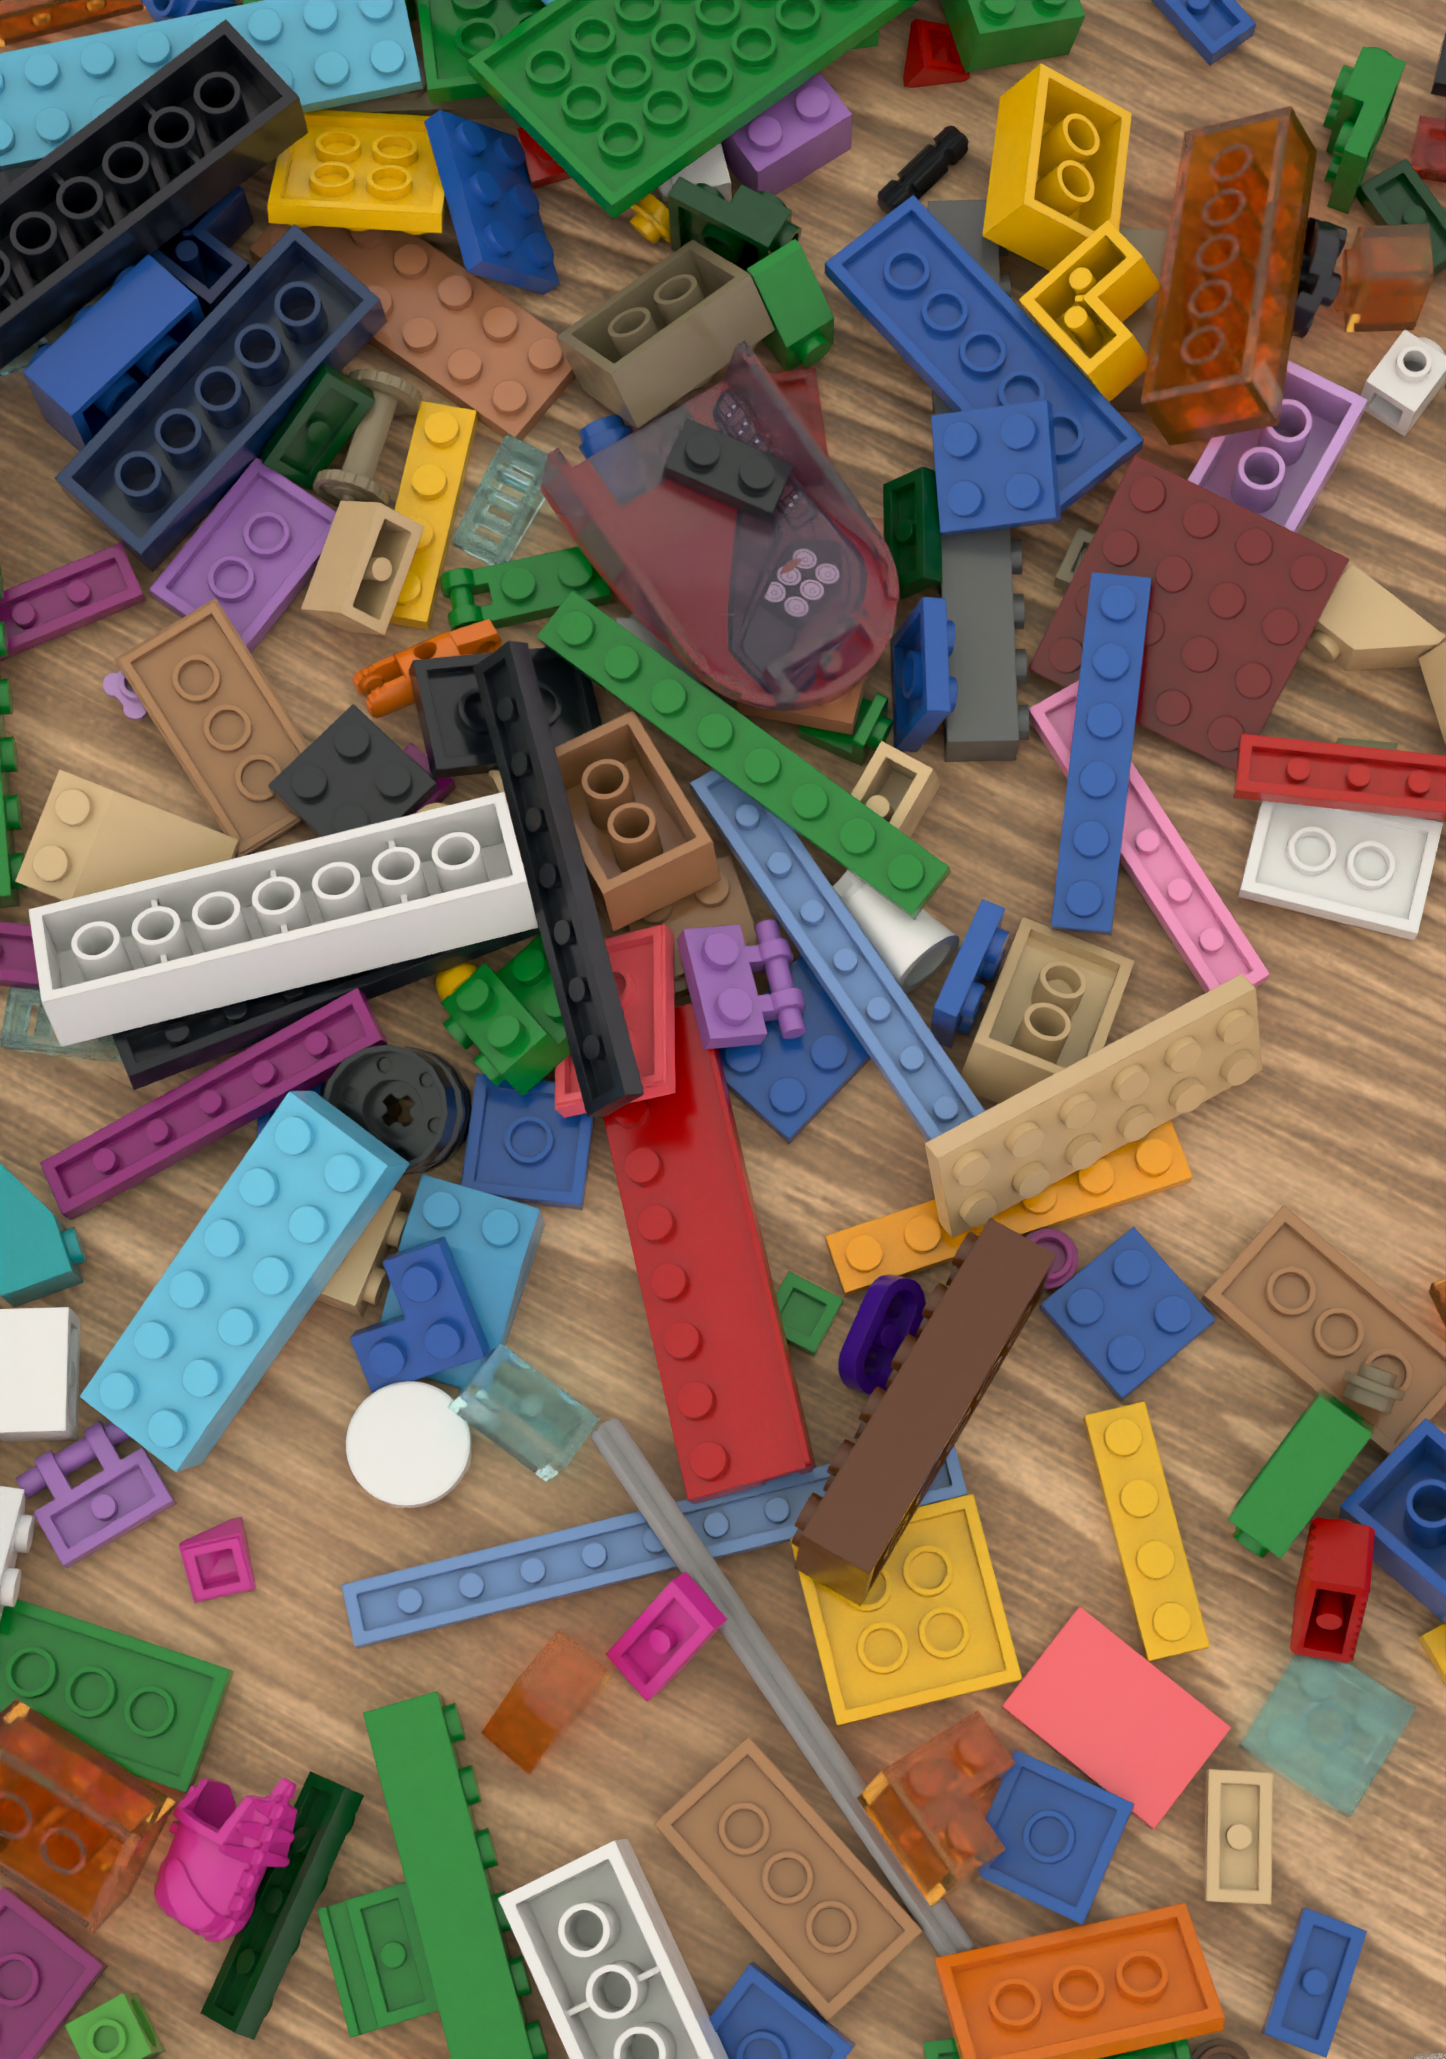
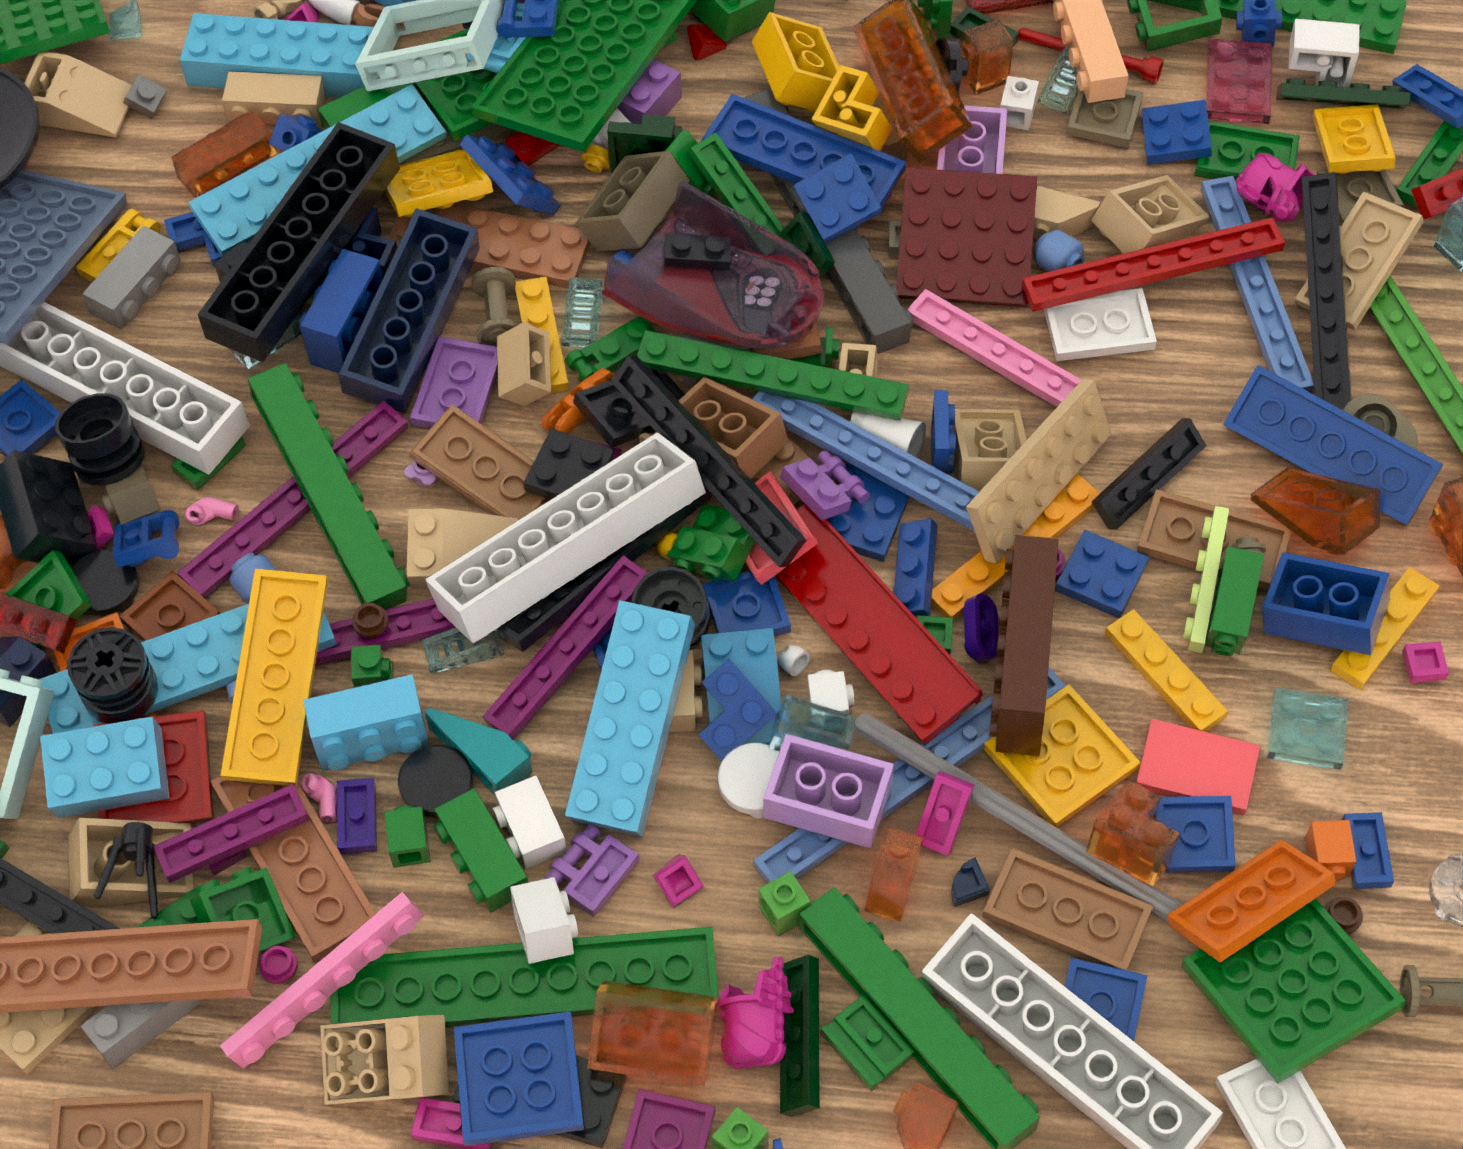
camera: 25 degrees left, 15 degrees down
(317, 426) = (467, 307): dark green plate -> none
(354, 1678) = (782, 902): none -> bright green brick
(494, 1532) = (828, 790): none -> lavender brick
(562, 1264) = (794, 659): none -> white hinge
(586, 1355) = (830, 690): none -> white brick
(660, 1760) = (969, 883): none -> dark blue tile
(826, 1184) = (916, 565): none -> blue plate
(843, 383) = (732, 183): none -> green plate
(920, 674) = (845, 306): blue plate -> none
(924, 169) = (727, 87): black axle -> none
(1101, 753) = (956, 314): blue plate -> none
(1238, 1837) = (1290, 795): tan plate -> none
(1253, 1959) = (1332, 846): none -> orange brick
(1262, 1429) = (1203, 593): none -> yellowish green plate
(1288, 1170) = (1149, 473): none -> black plate
(1332, 702) = (1058, 251): none -> medium blue head
(1332, 1589) = (1278, 651): red brick -> none

